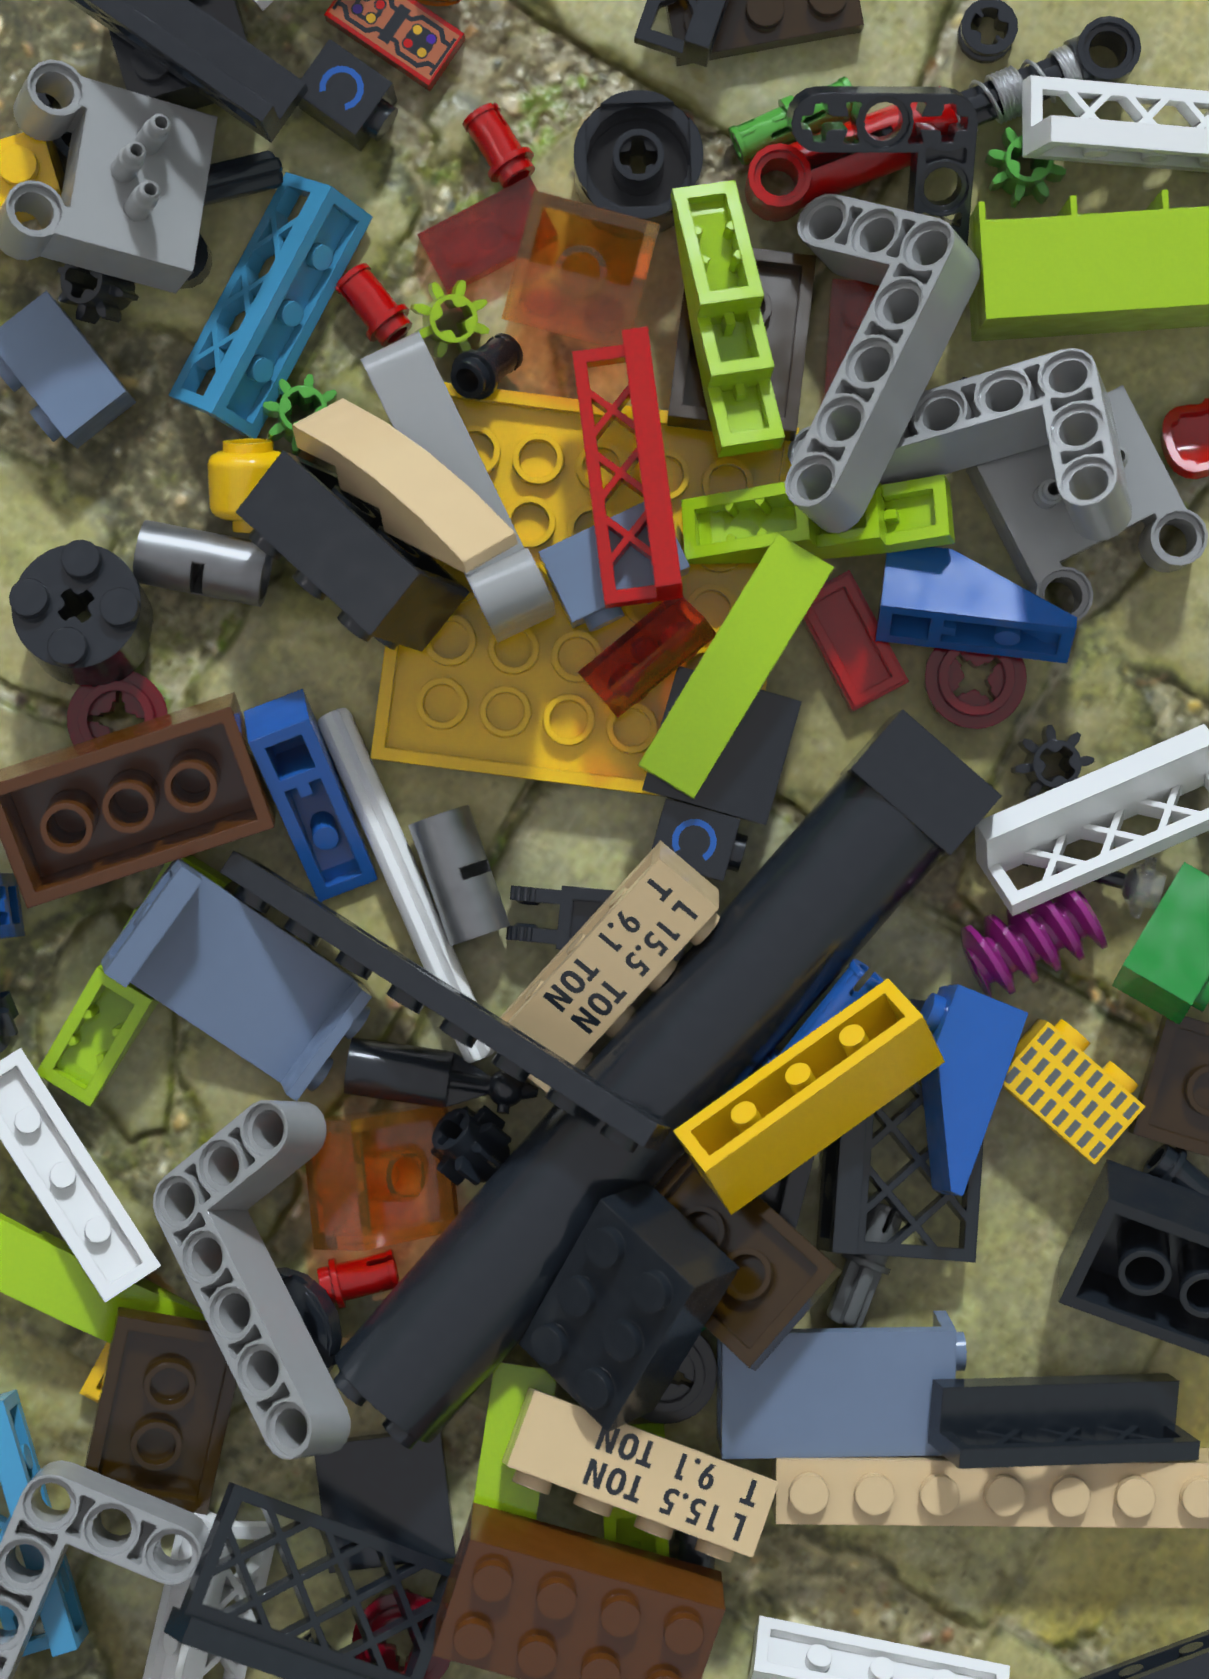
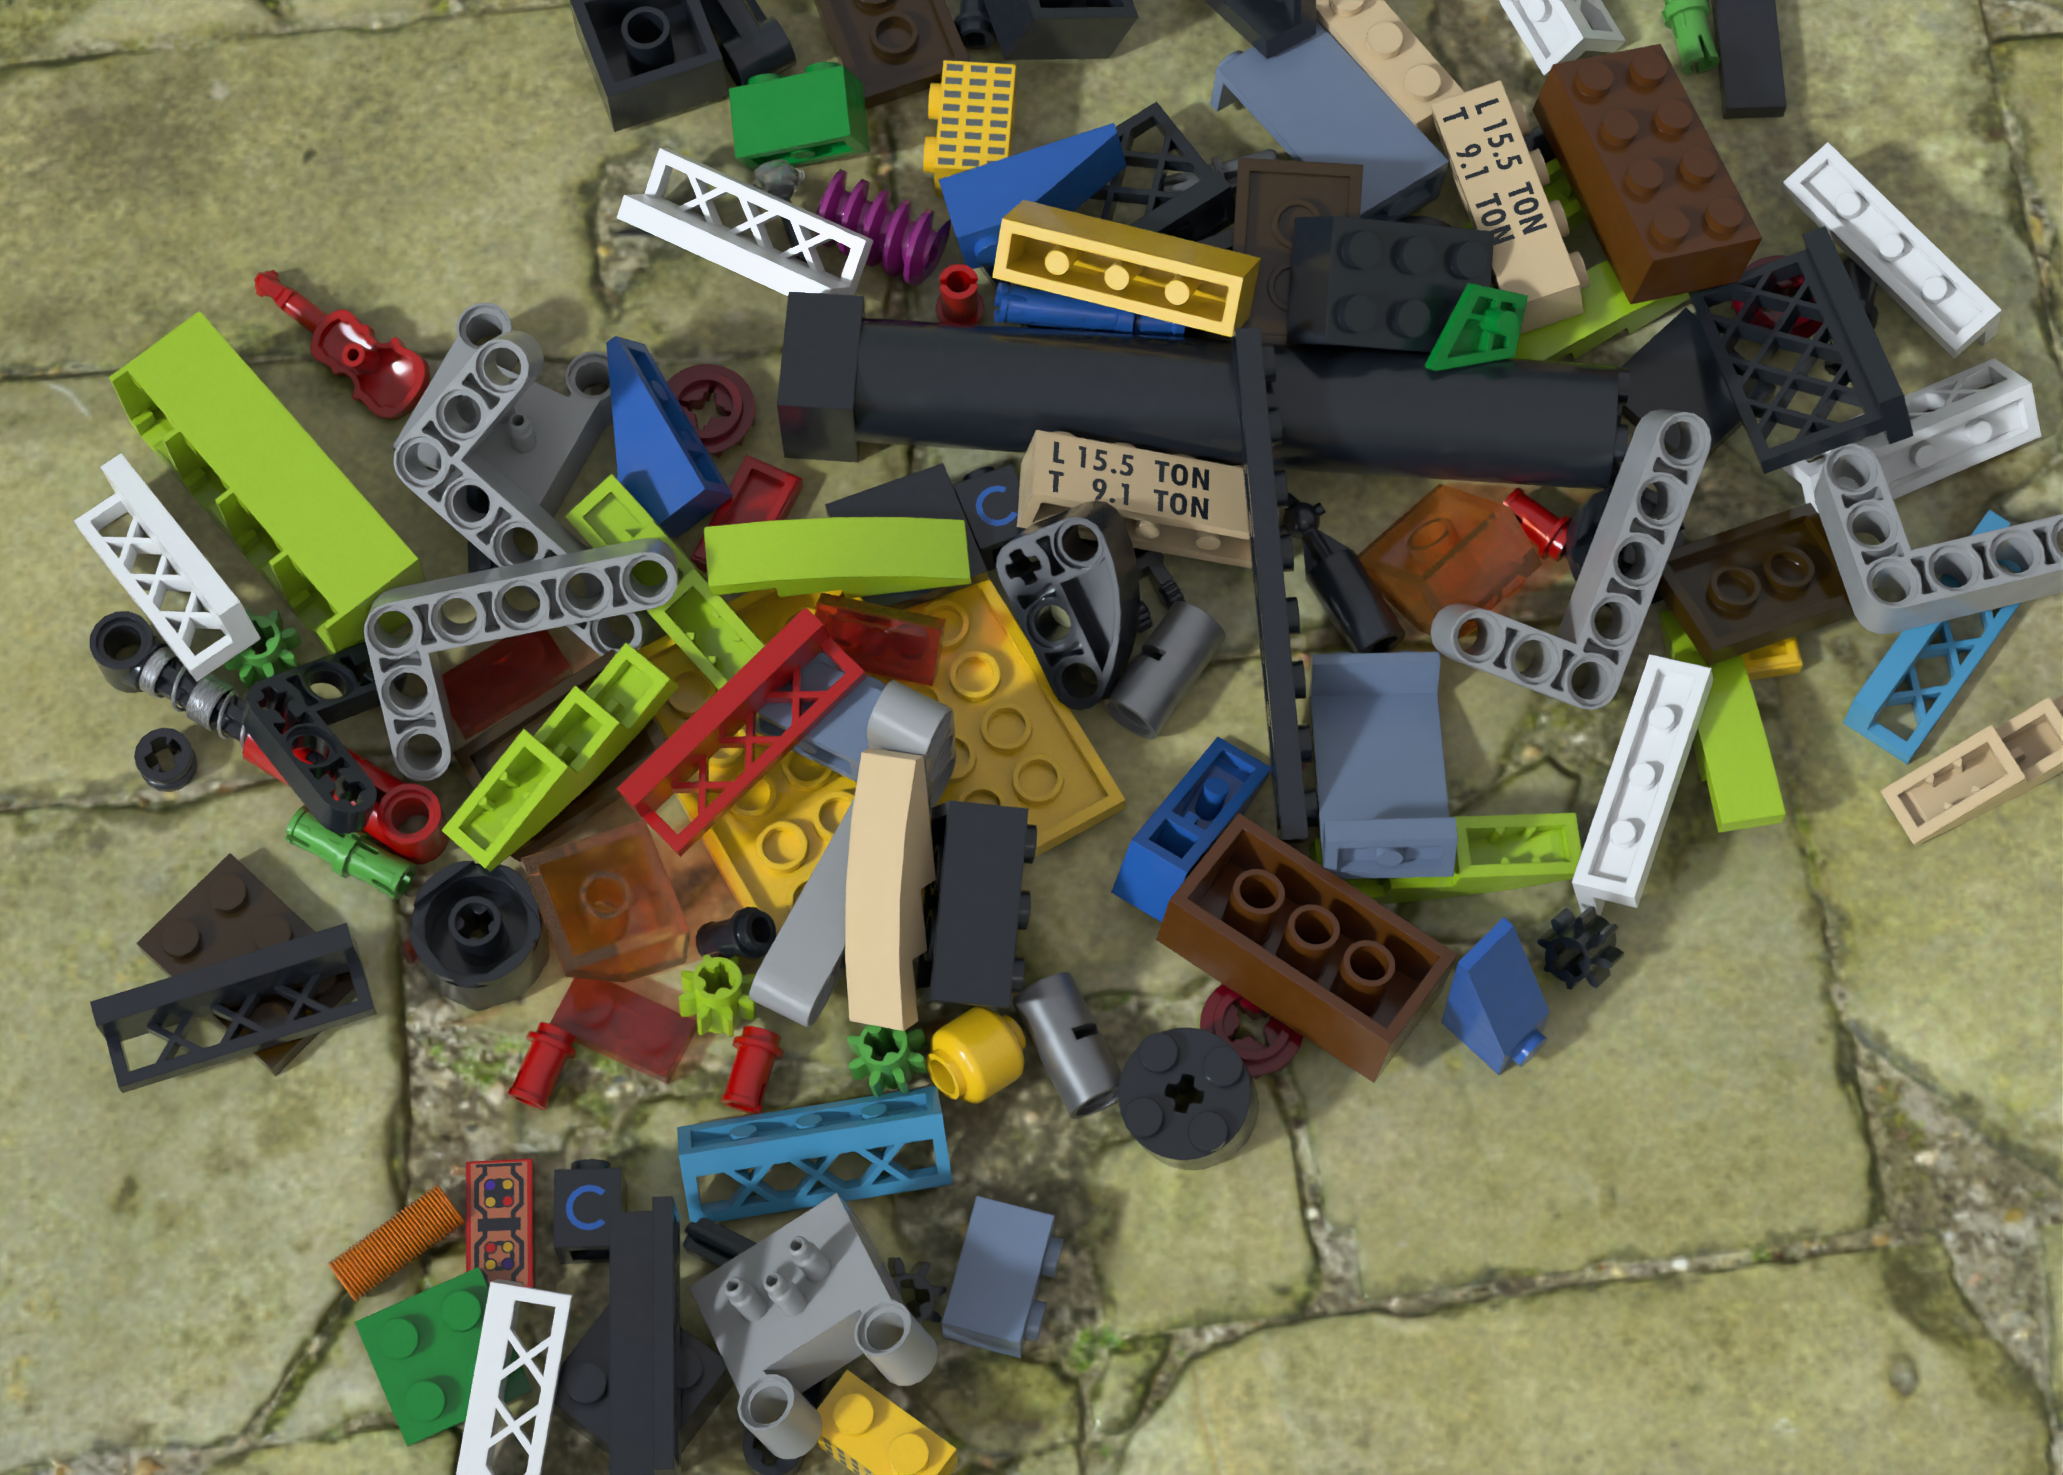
camera: 130 degrees left, 20 degrees down
(395, 858) = (1193, 724): white axle -> none
(470, 1145) = (1366, 509): black gear -> none
(527, 1347) = (1480, 329): none -> green piece
(559, 836) = (1090, 584): none -> black beam
(898, 957) = (959, 296): none -> red pin
(1034, 766) = (734, 323): black gear -> none

